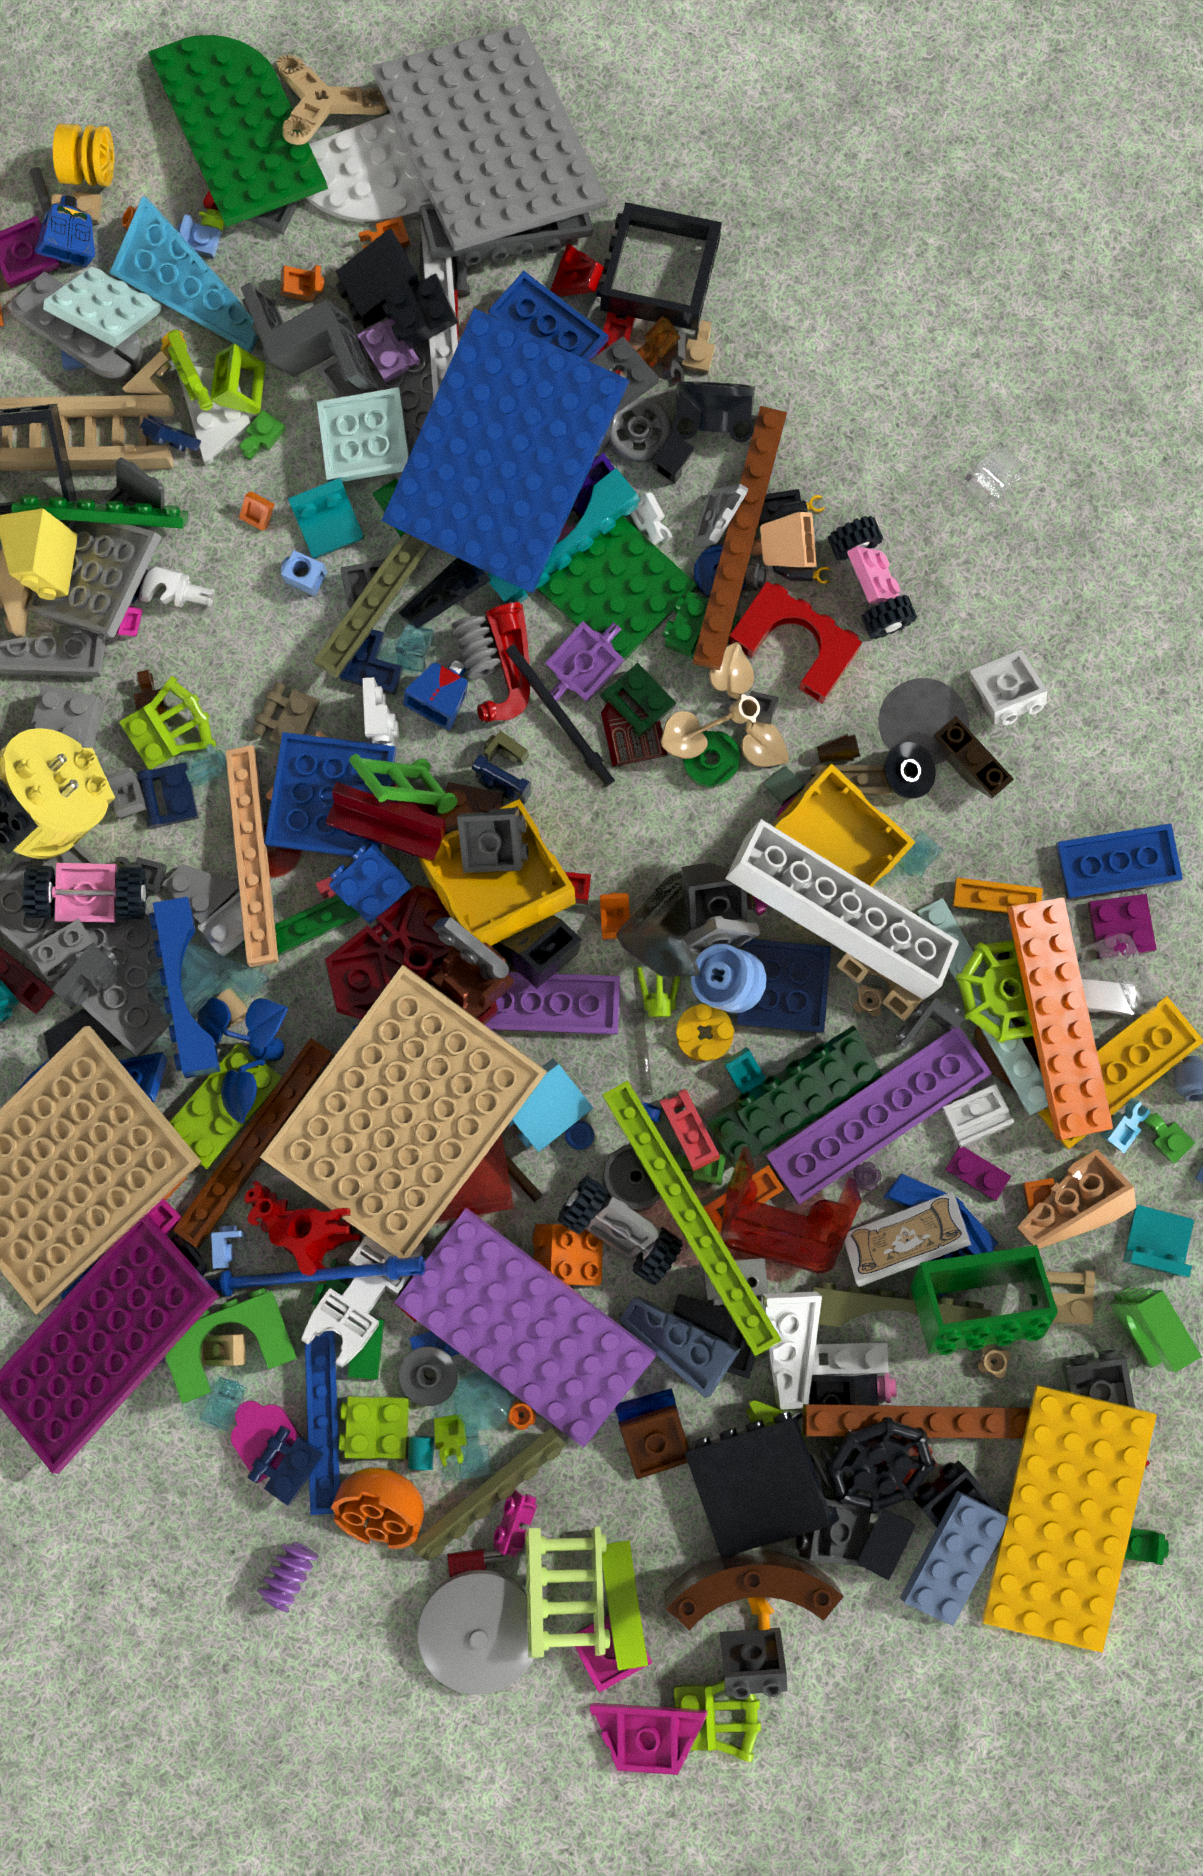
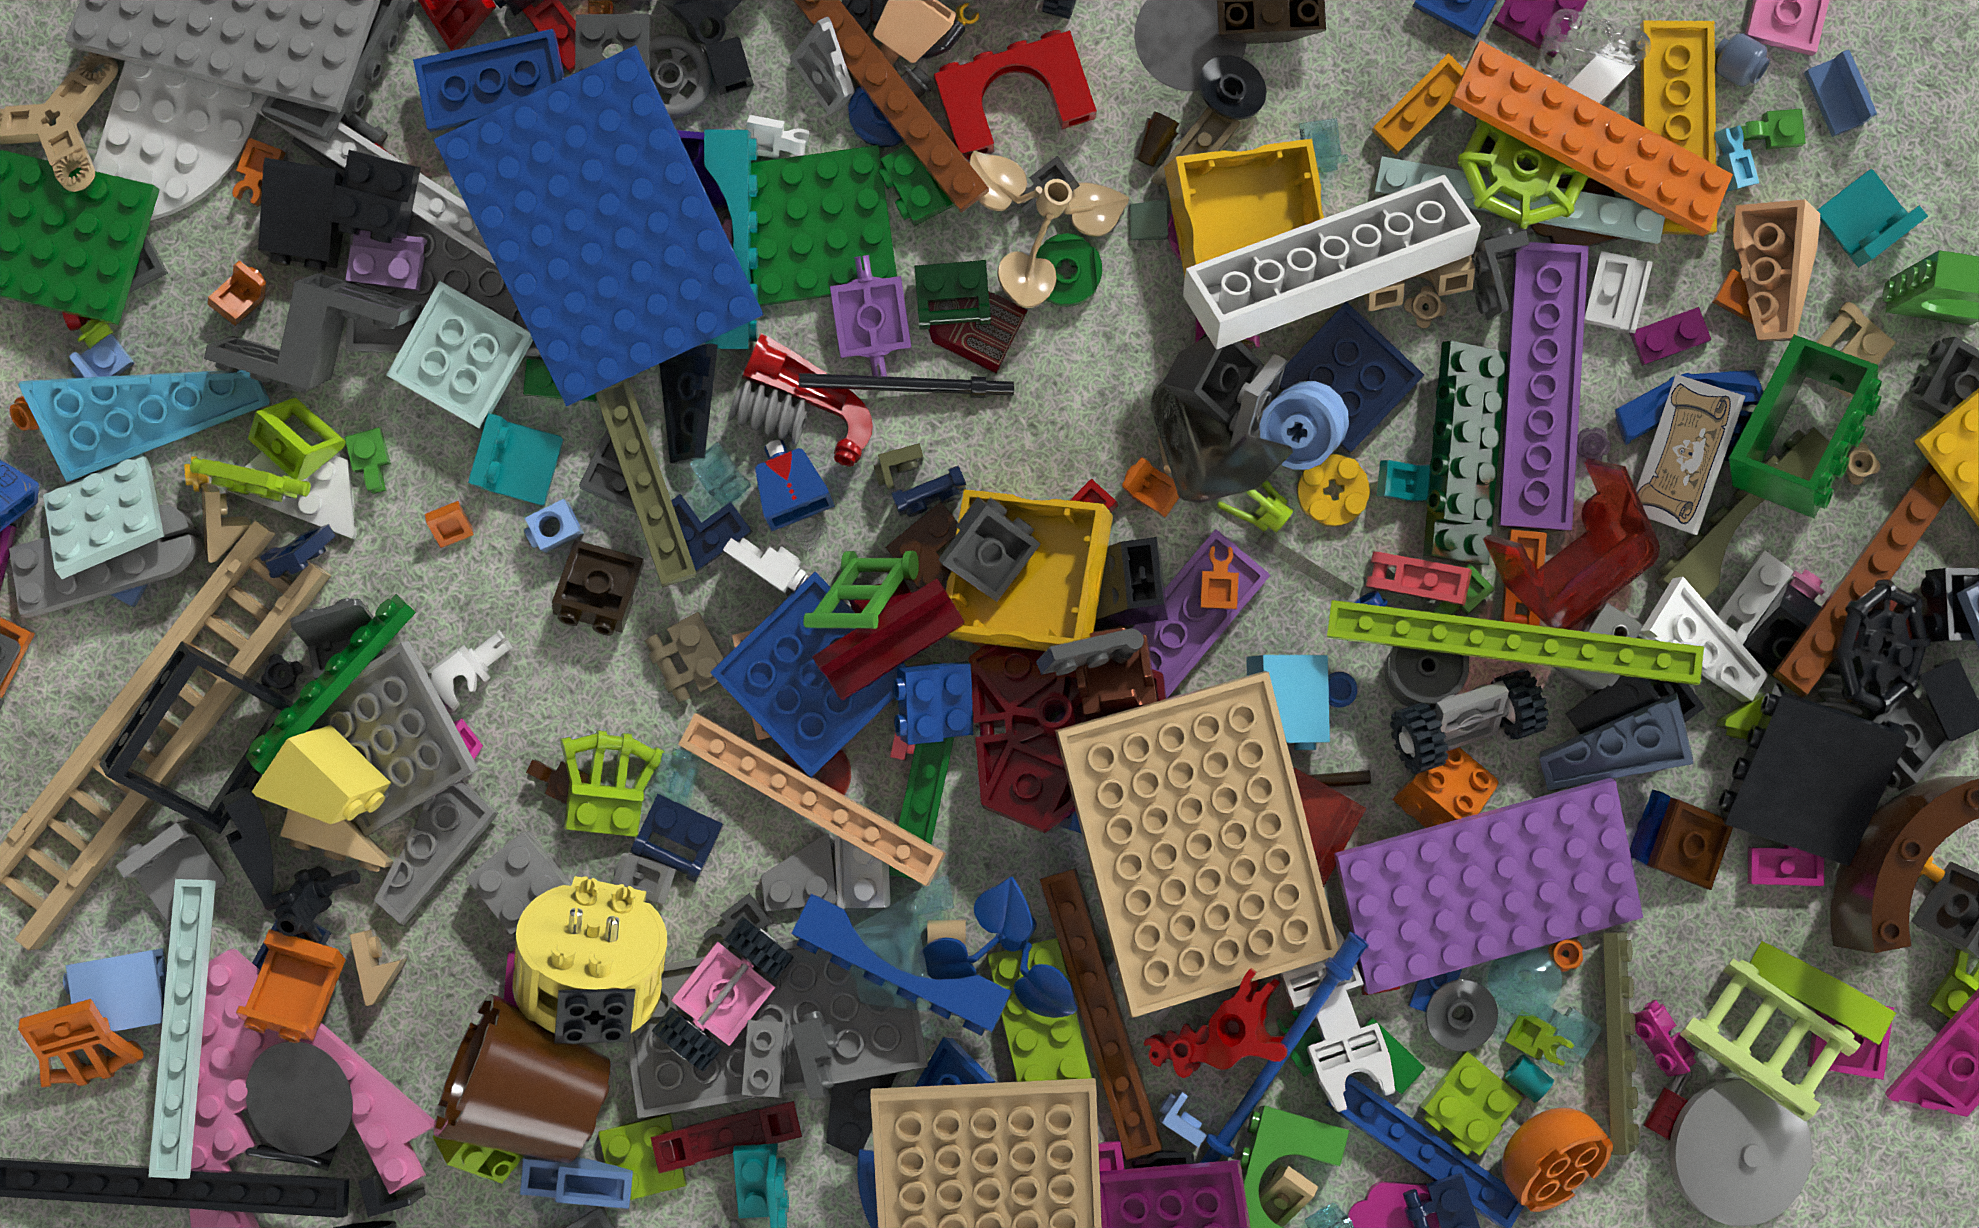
camera: 60 degrees left, 5 degrees up
(81, 481) = (275, 666): none -> black plate
(285, 627) = (597, 587): none -> dark brown plate
(583, 1005) = (1219, 586): none -> orange plate
(688, 1517) = (1784, 867): none -> dark pink plate

